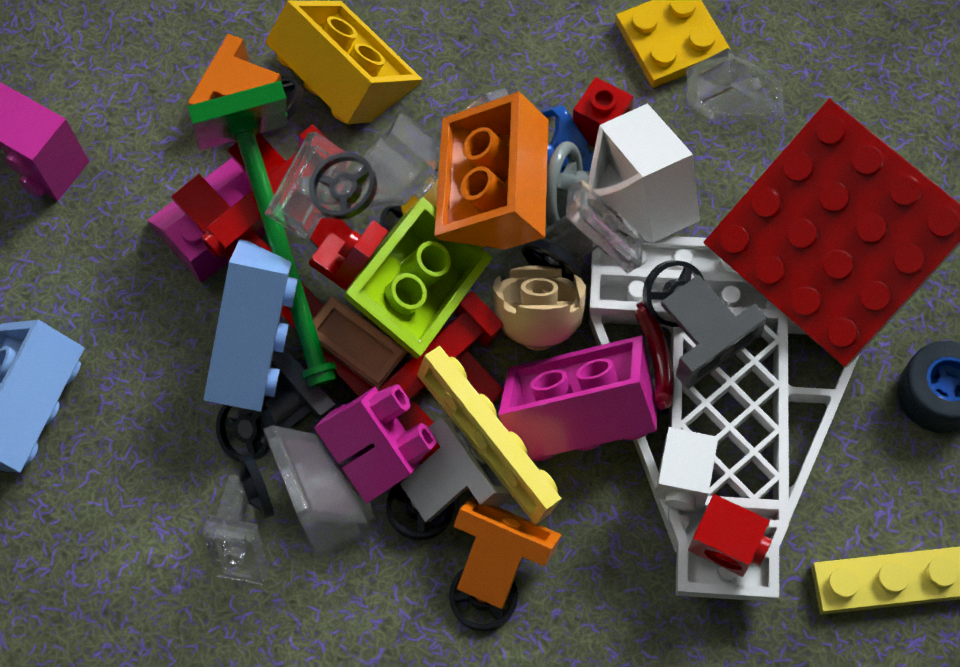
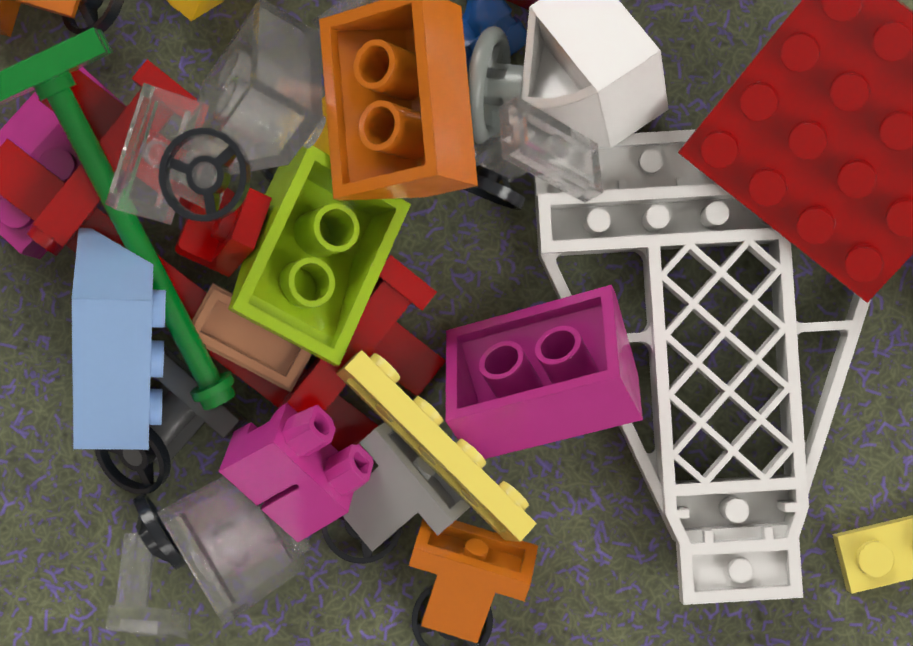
camera: 15 degrees left, 20 degrees up
(539, 305) = (476, 253): tan cylinder -> none
(660, 357) = (637, 312): dark red piece -> none
(686, 469) = (683, 465): white brick -> none
(703, 319) = (682, 262): dark grey piece -> none
(731, 536) = (743, 543): red brick -> none

